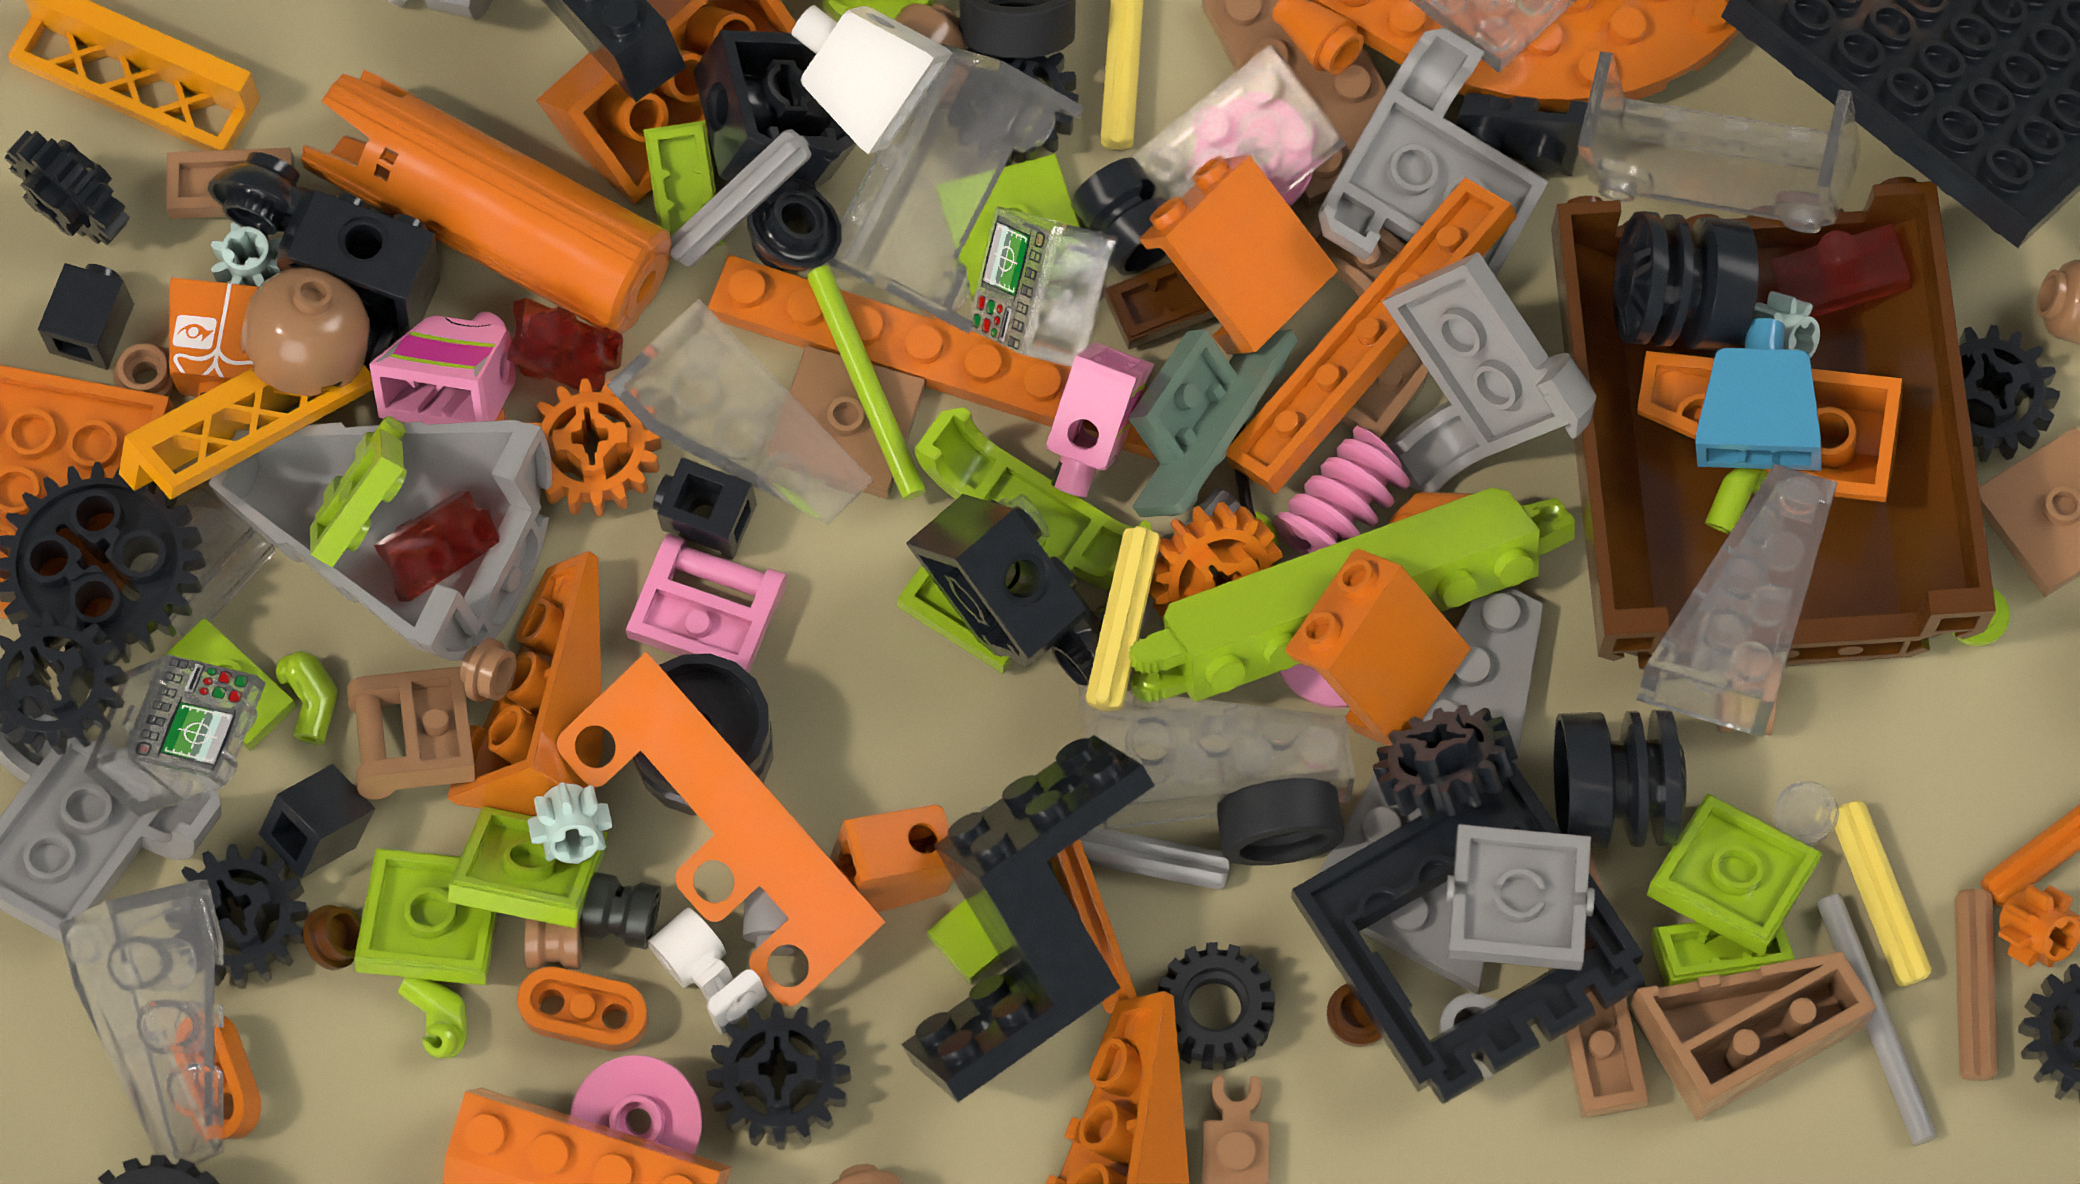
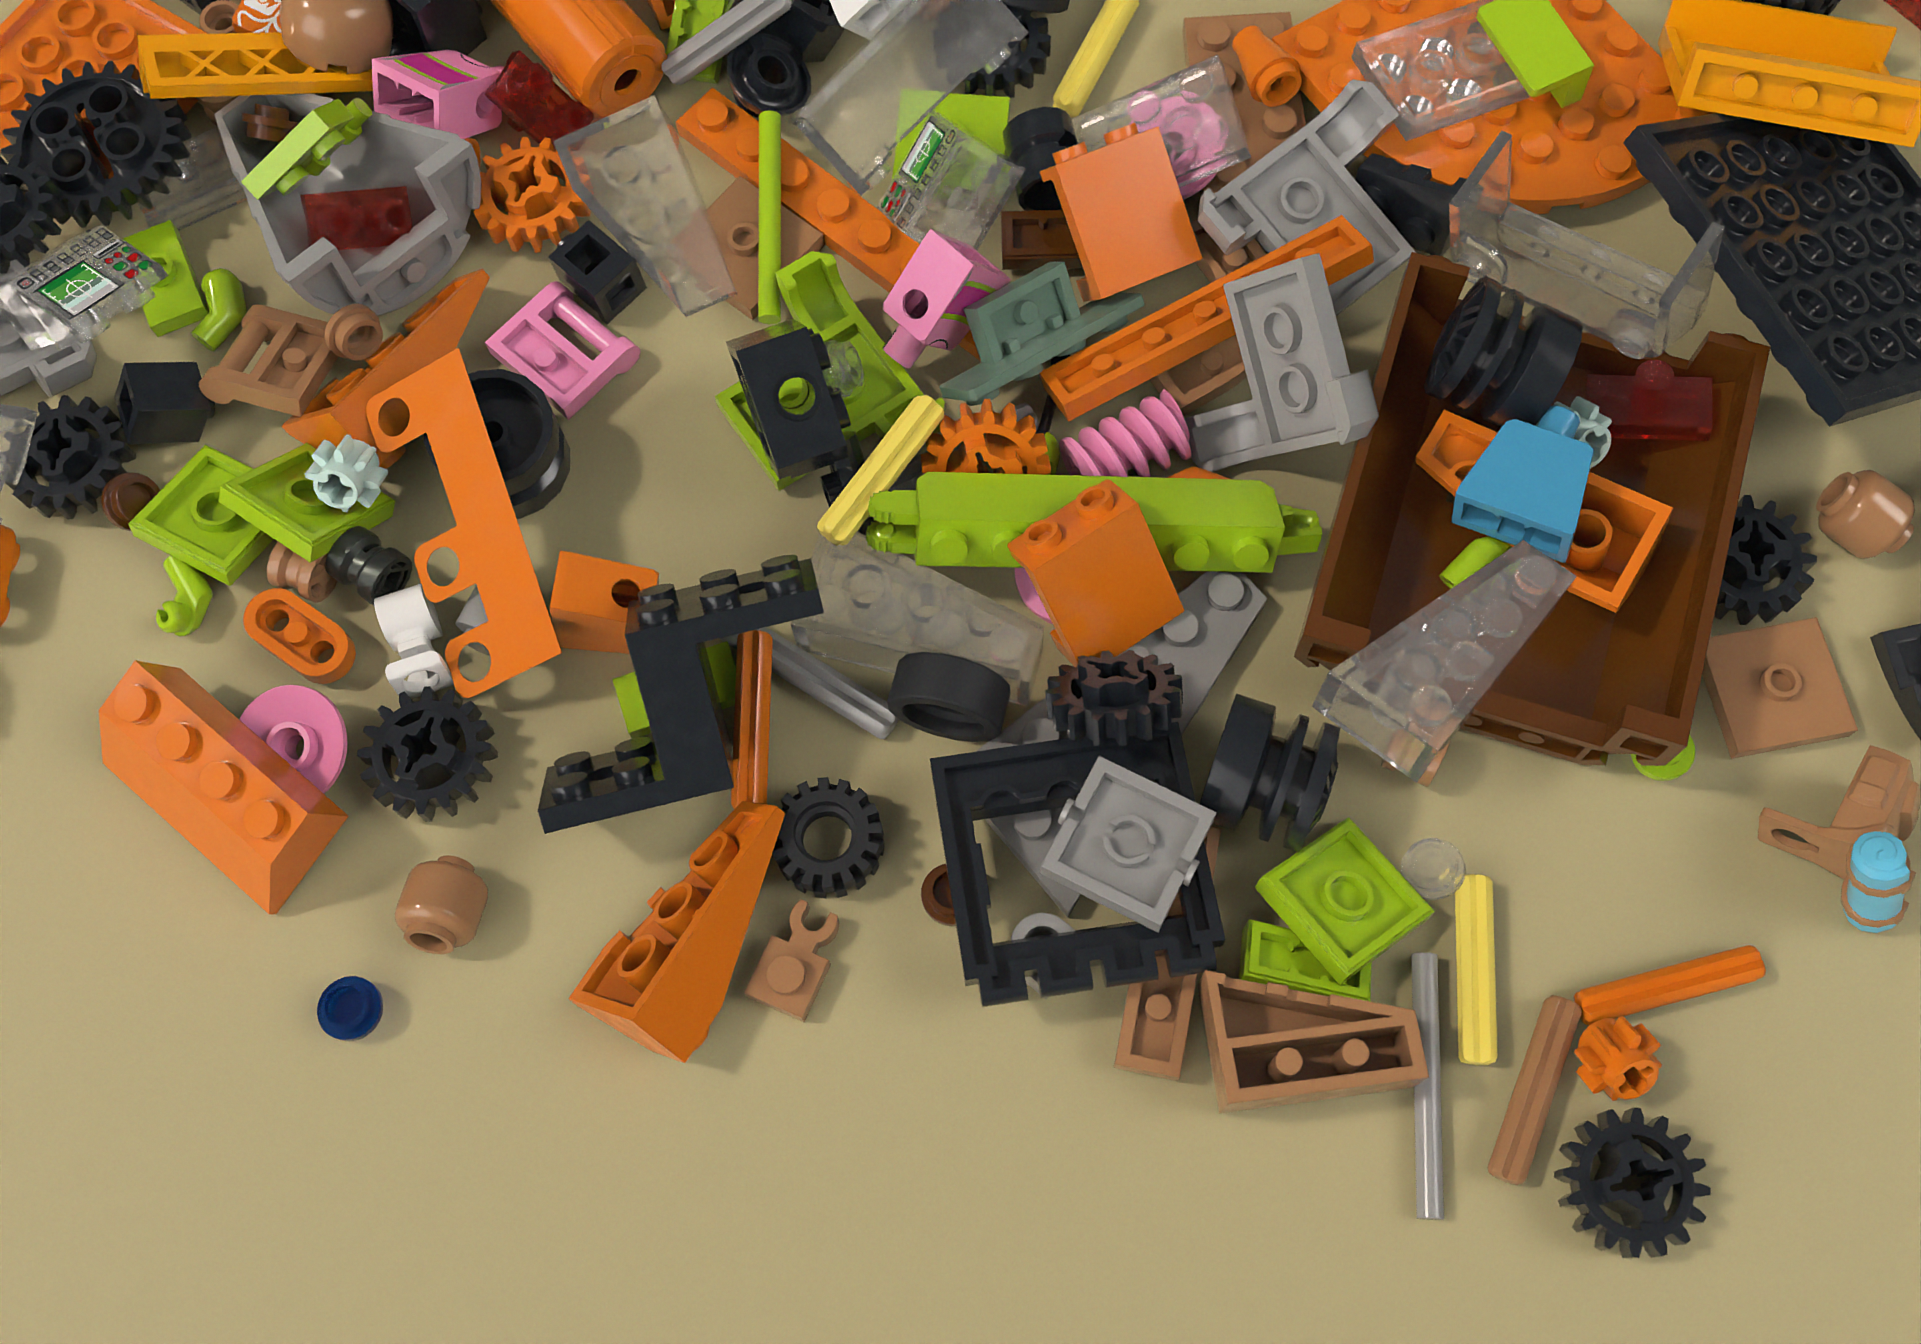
camera: 25 degrees right, 0 degrees up
(273, 472) = (268, 123): none -> reddish brown plate

